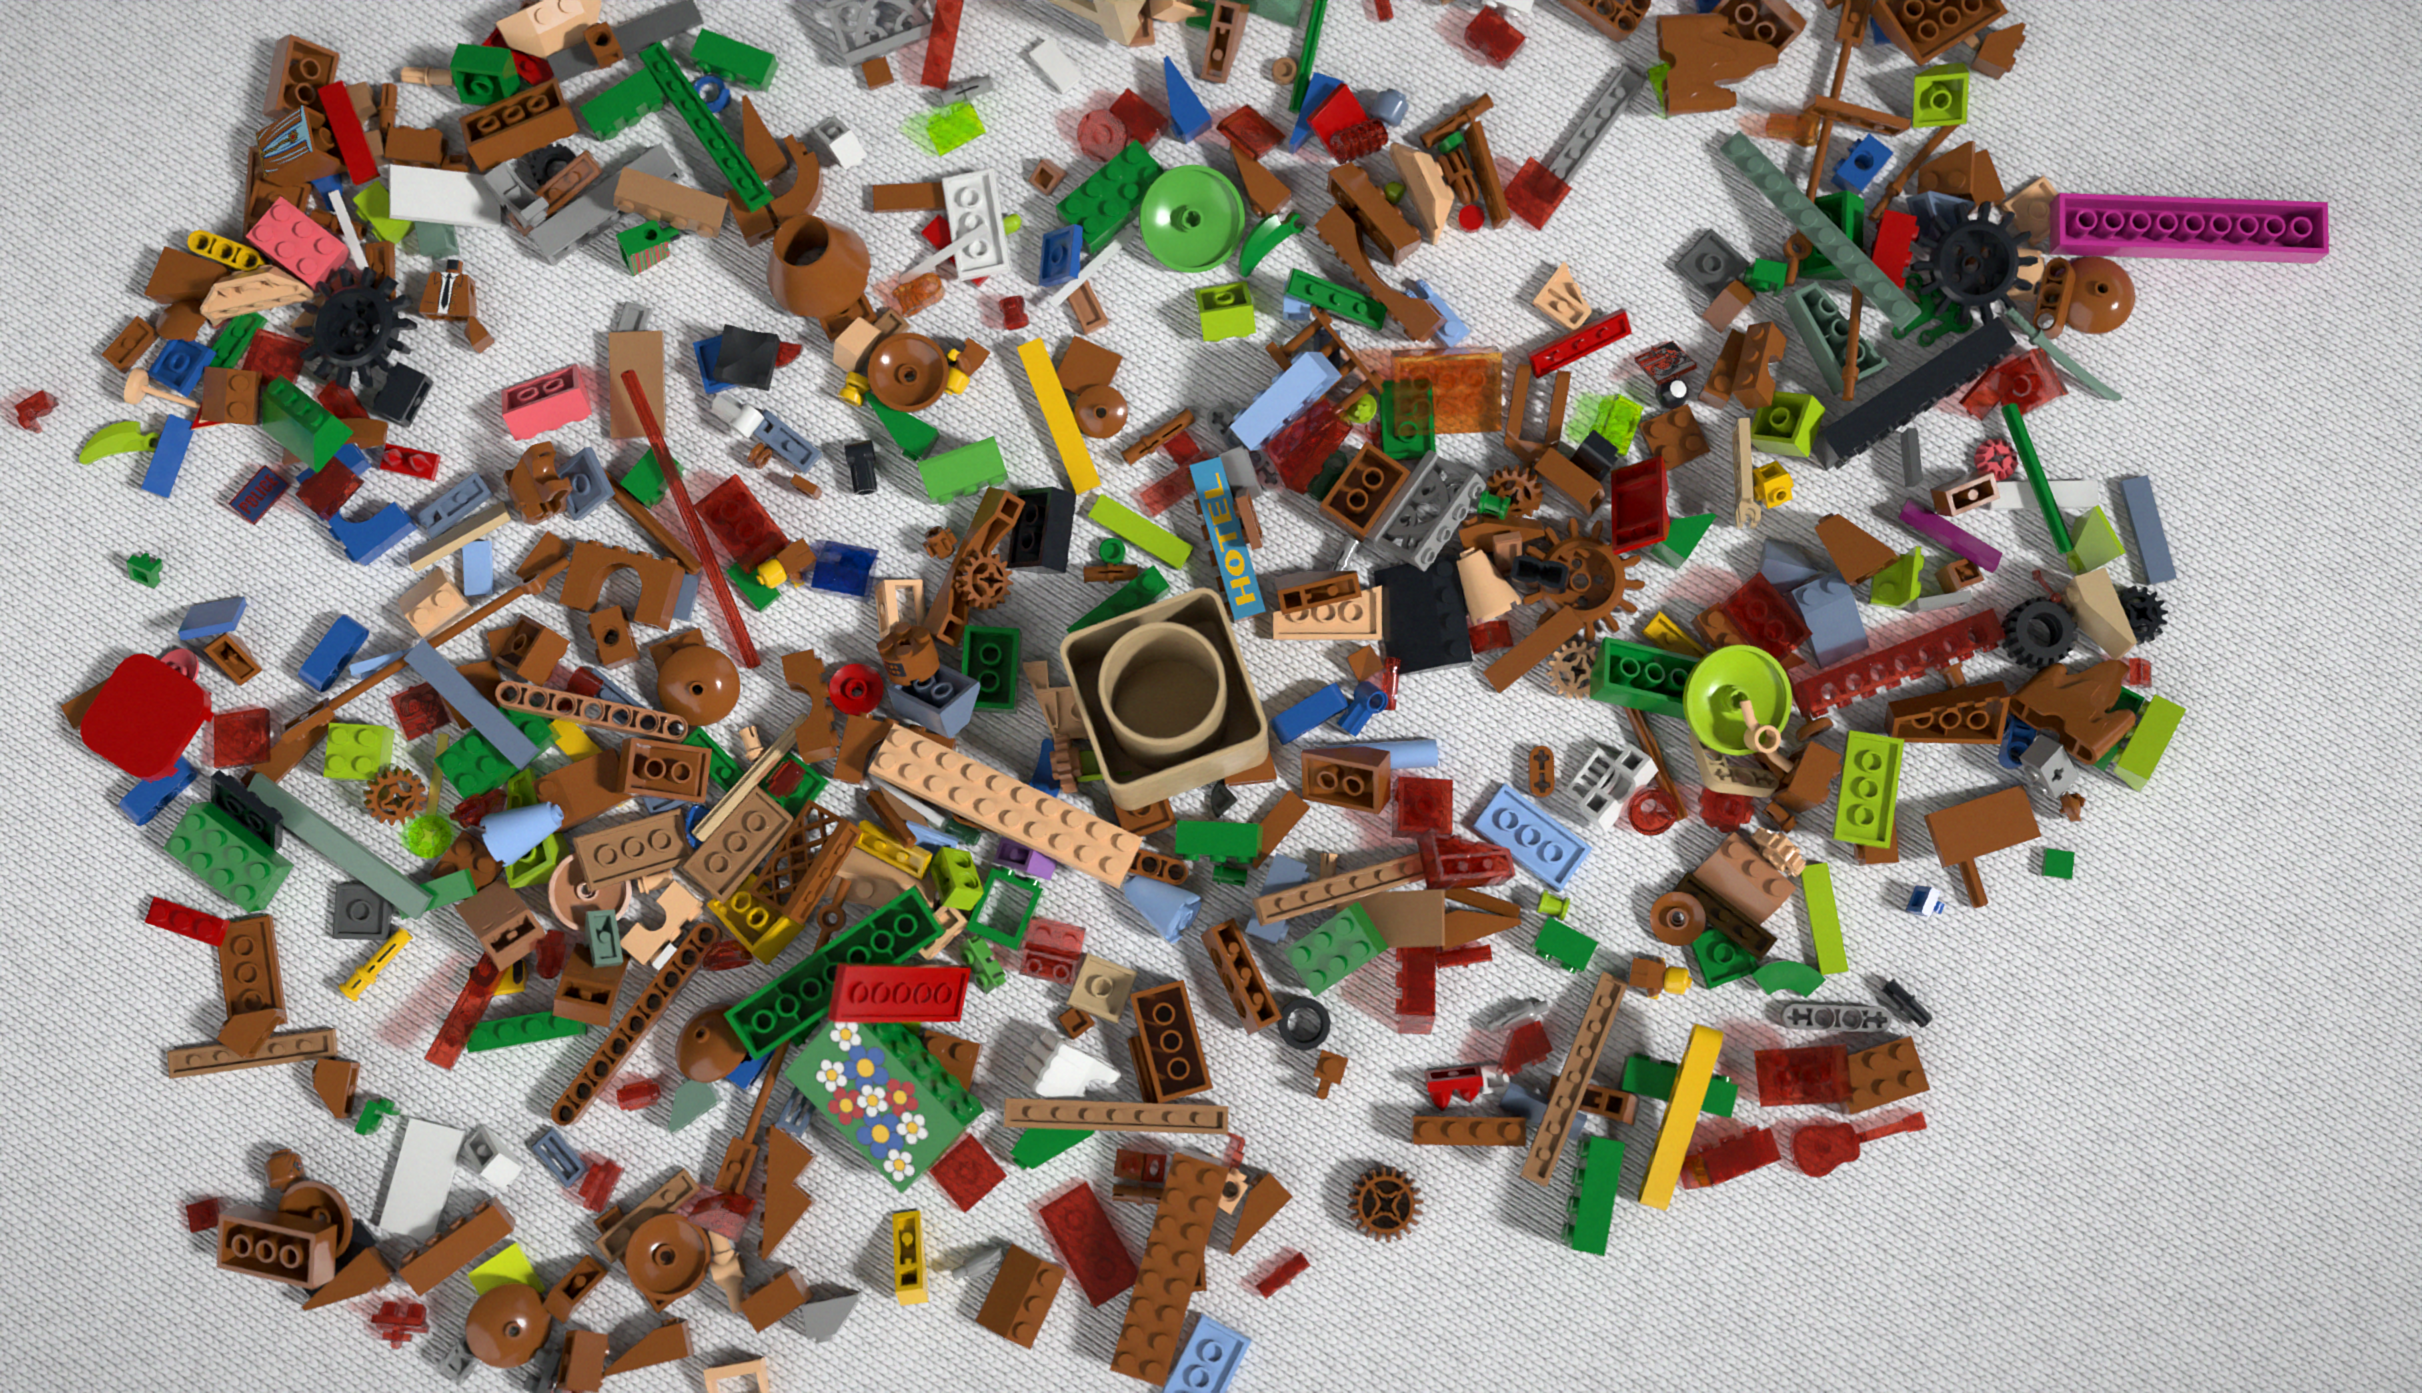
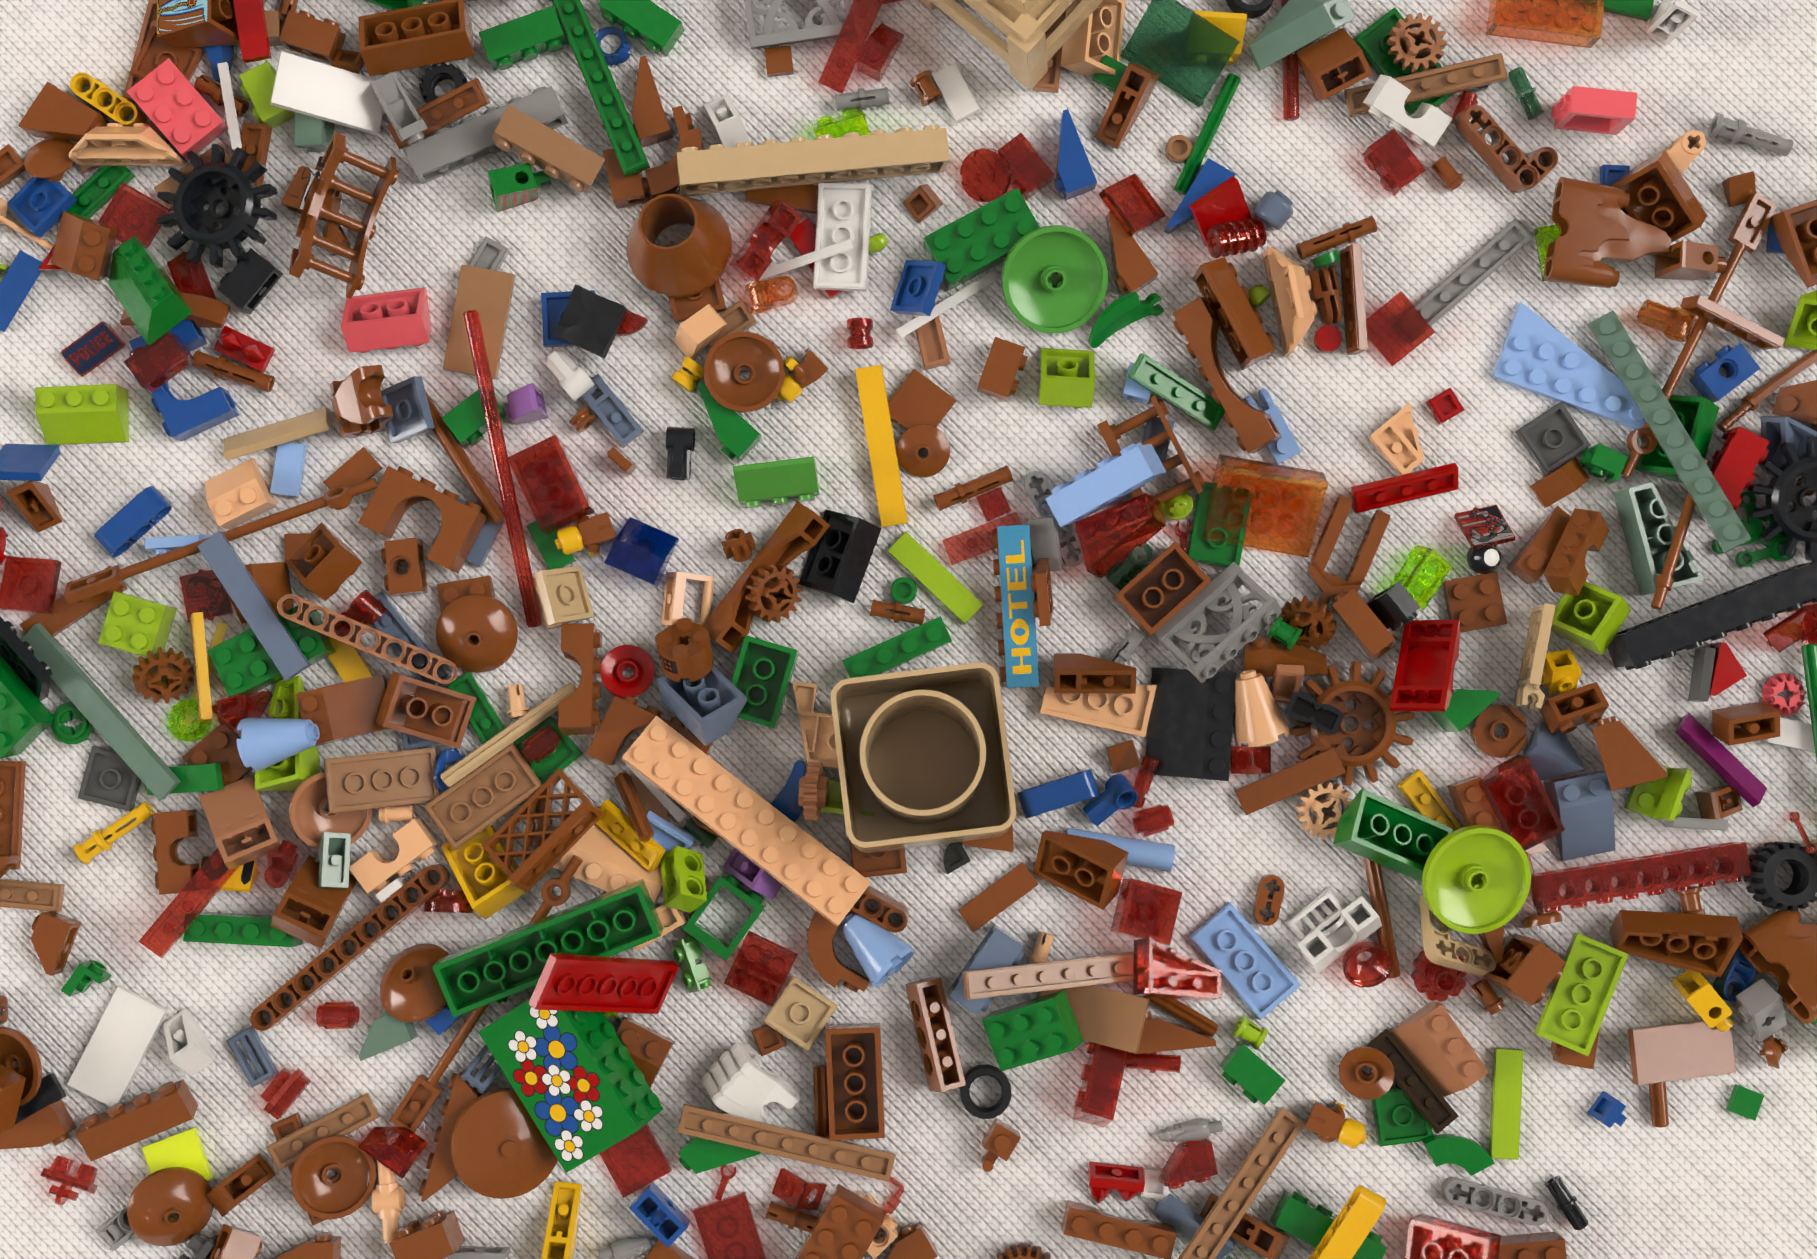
camera: 10 degrees right, 5 degrees up
(263, 559) = (83, 414): none -> lime slope
(302, 859) = (67, 733): none -> green gear
(391, 484) = (223, 368): none -> dark orange pin
(431, 779) = (201, 667): none -> yellow tile
(432, 948) = (169, 831): none -> dark orange arch
(453, 310) = (316, 209): none -> dark orange fence
(455, 505) = (279, 401): sand blue plate -> none
(700, 453) = (526, 405): none -> medium lavender slope
(775, 630) = (562, 596): none -> tan bracket
(831, 1186) = (500, 1146): none -> dark orange dish
(904, 235) = (773, 228): none -> clear red arch
(930, 157) = (812, 160): none -> tan brick
(972, 43) = (878, 51): none -> clear red slope
(1005, 1219) = (660, 1214): none -> blue brick
(1026, 67) = (925, 88): none -> dark orange bush
(1063, 1174) = (723, 1182): none -> clear red hand
(1106, 913) = (824, 958): none -> dark orange arch
(1159, 317) = (1001, 368): none -> dark orange brick
(1219, 841) = (943, 899): green brick -> none
(1229, 875) = (945, 932): green pin -> none
(1408, 718) = (1153, 820): none -> clear red brick
(1549, 37) = (1447, 173): none -> dark orange pin
(1600, 257) = (1445, 406): none -> red tile
(1695, 197) = (1553, 366): none -> light blue wing
(1730, 571) = (1515, 731): none -> dark orange plate
(1772, 740) = (1500, 928): light nougat piece -> none
(1778, 851) = (1479, 1033): light nougat gear -> none
(1794, 516) = (1574, 708): none -> dark orange brick
(1801, 68) = (1689, 261): none -> dark orange torso
(1932, 446) = (1725, 669): none -> red slope
(1991, 770) = (1704, 999): none -> yellow torso

